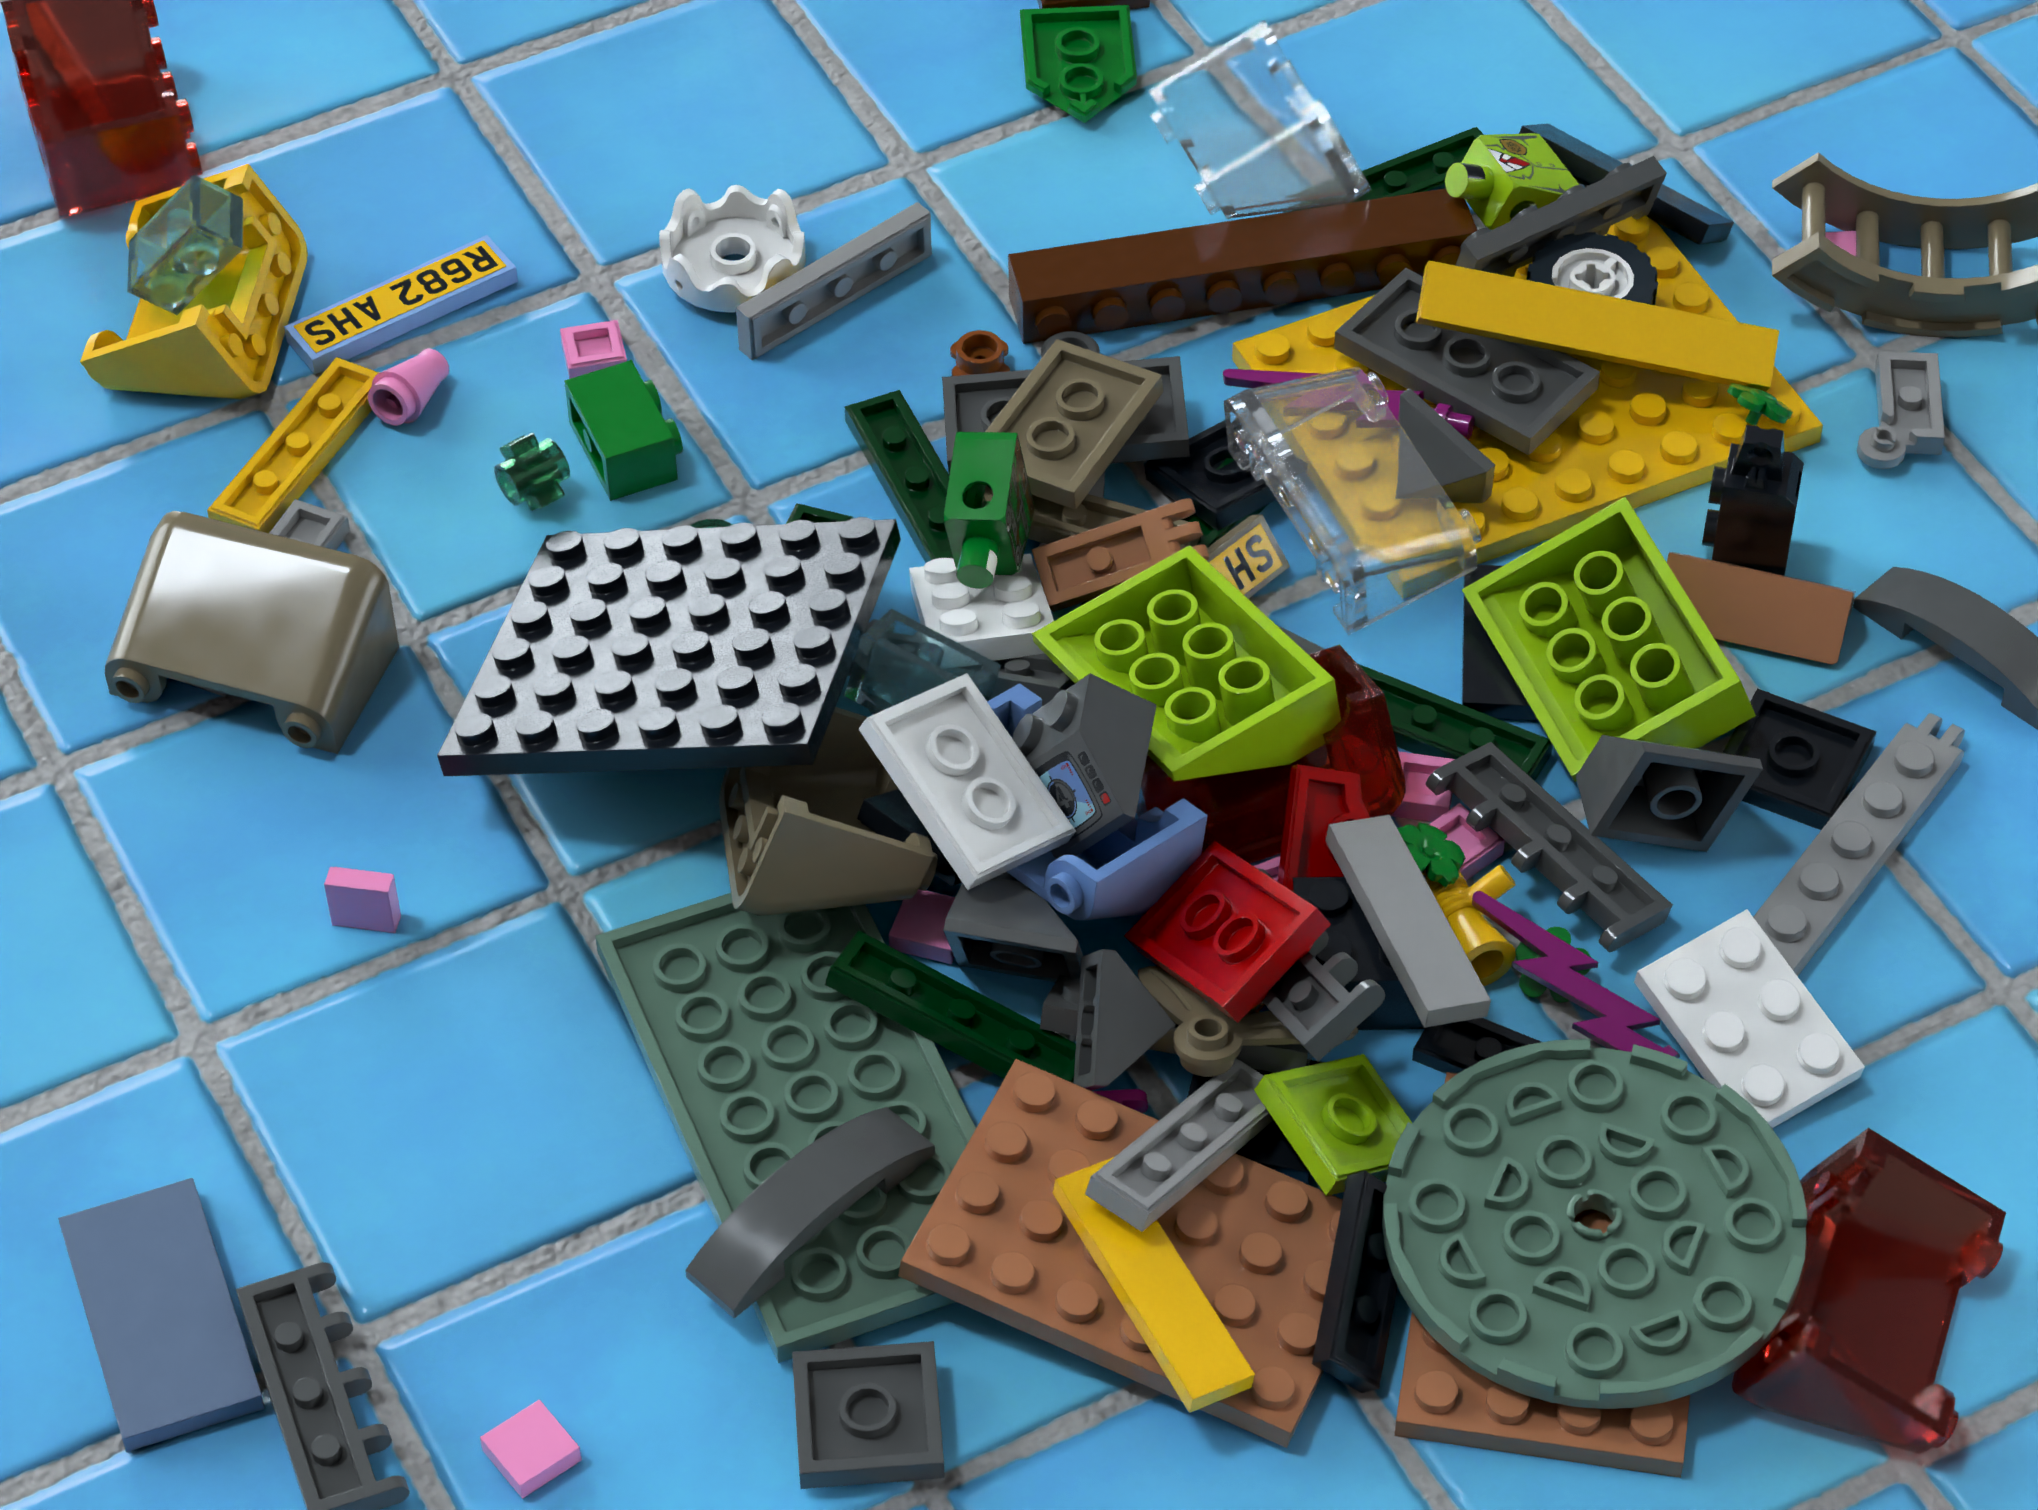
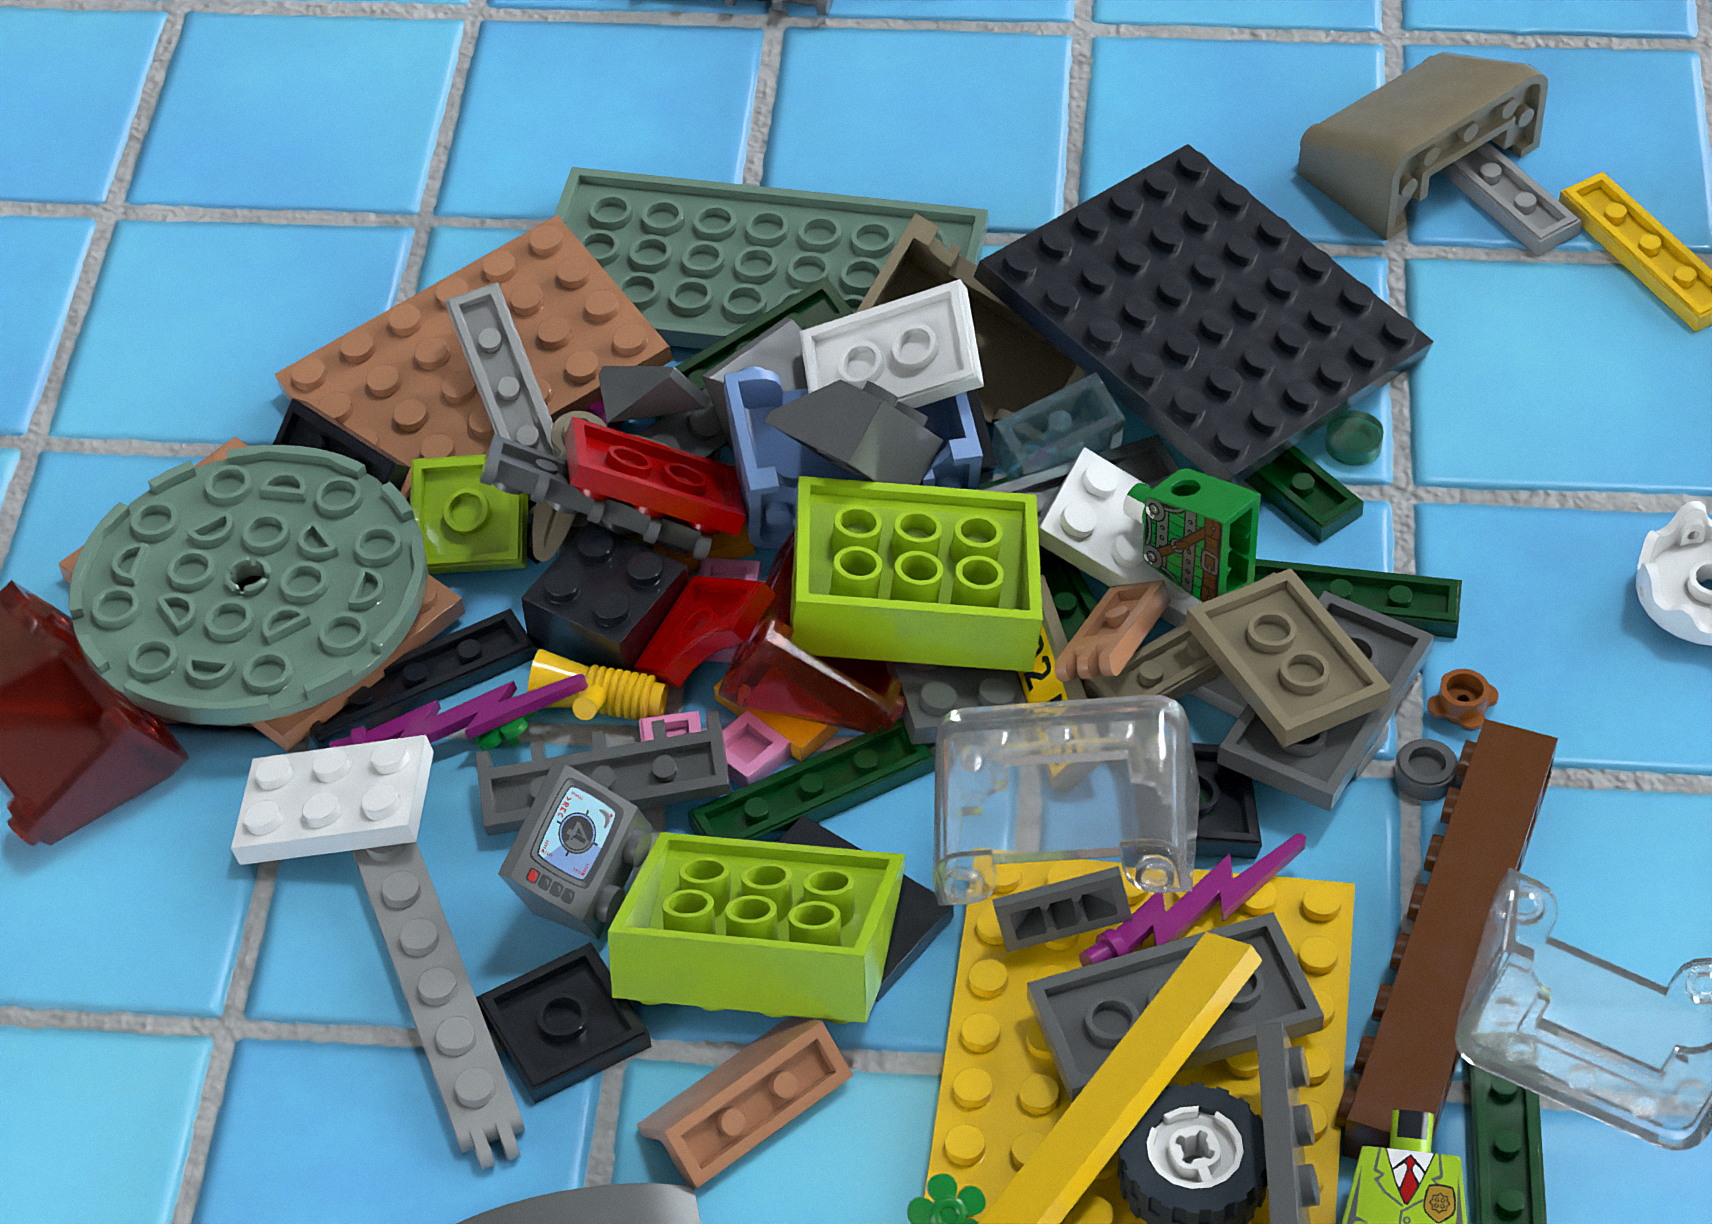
camera: 125 degrees right, 0 degrees up
(362, 899) = (1123, 117): tile -> none
(405, 389) = (1671, 321): bright pink cone -> none
(530, 1448) = (617, 56): bright pink tile -> none
(532, 471) = (1506, 348): clear green gear -> none
(592, 347) = (1653, 461): bright pink tile -> none
(623, 429) = (1524, 422): green brick -> none
(799, 1201) = (657, 218): dark grey slope -> none
(834, 281) = (1628, 636): light grey tile -> none
(867, 1415) = (489, 196): dark grey plate -> none
(1158, 1297) = (400, 324): yellow tile -> none
(1407, 921) = (572, 585): light grey tile -> none
(1433, 852) = (645, 667): green plant -> none
(1755, 502) = (813, 1113): black hinge -> none

